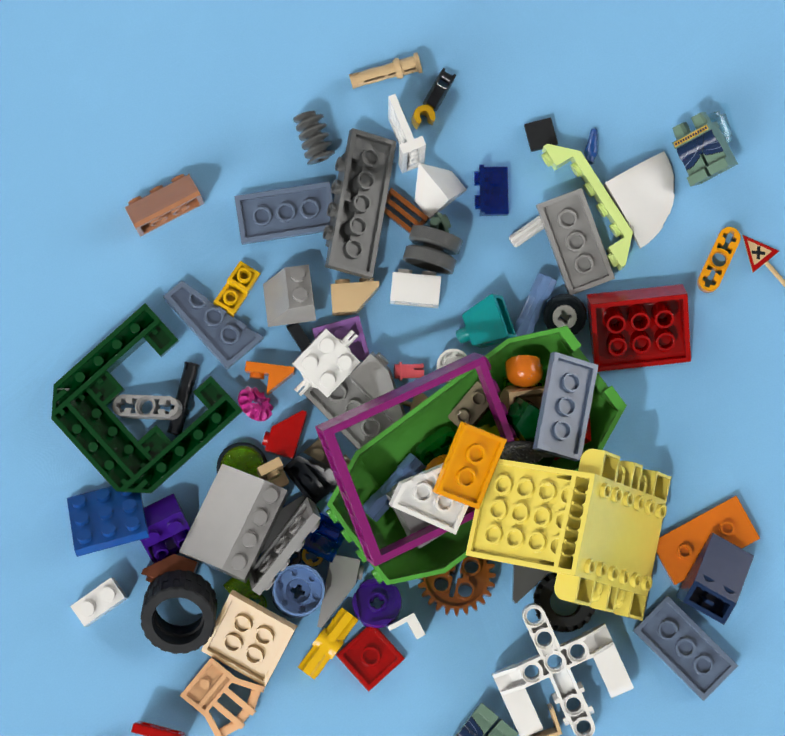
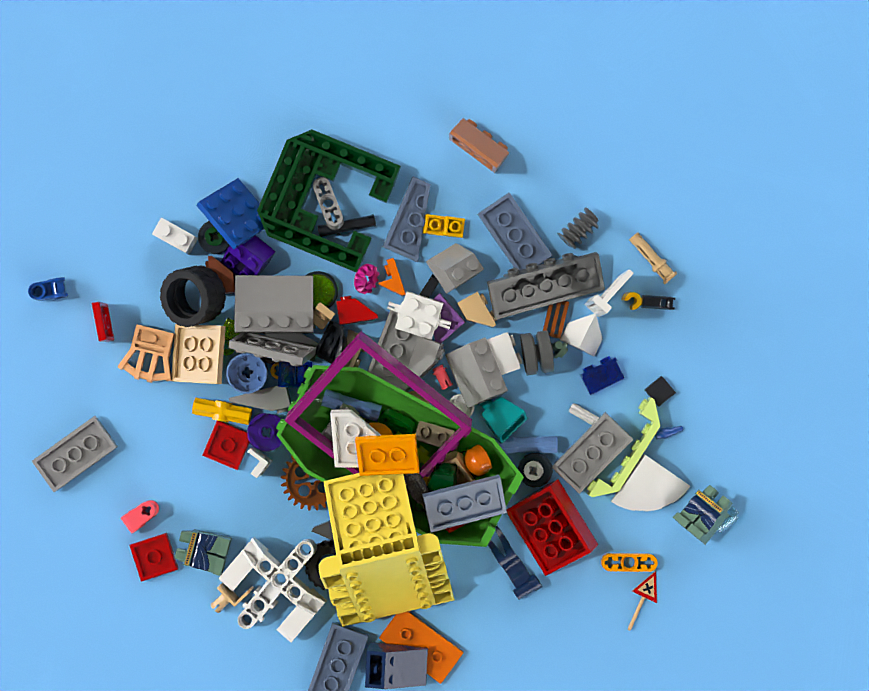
camera: 70 degrees right, 5 degrees up
(130, 553) = (205, 237): none -> black wheel
(422, 328) = (476, 372): none -> light grey slope
(667, 392) = (515, 569): none -> dark blue flag

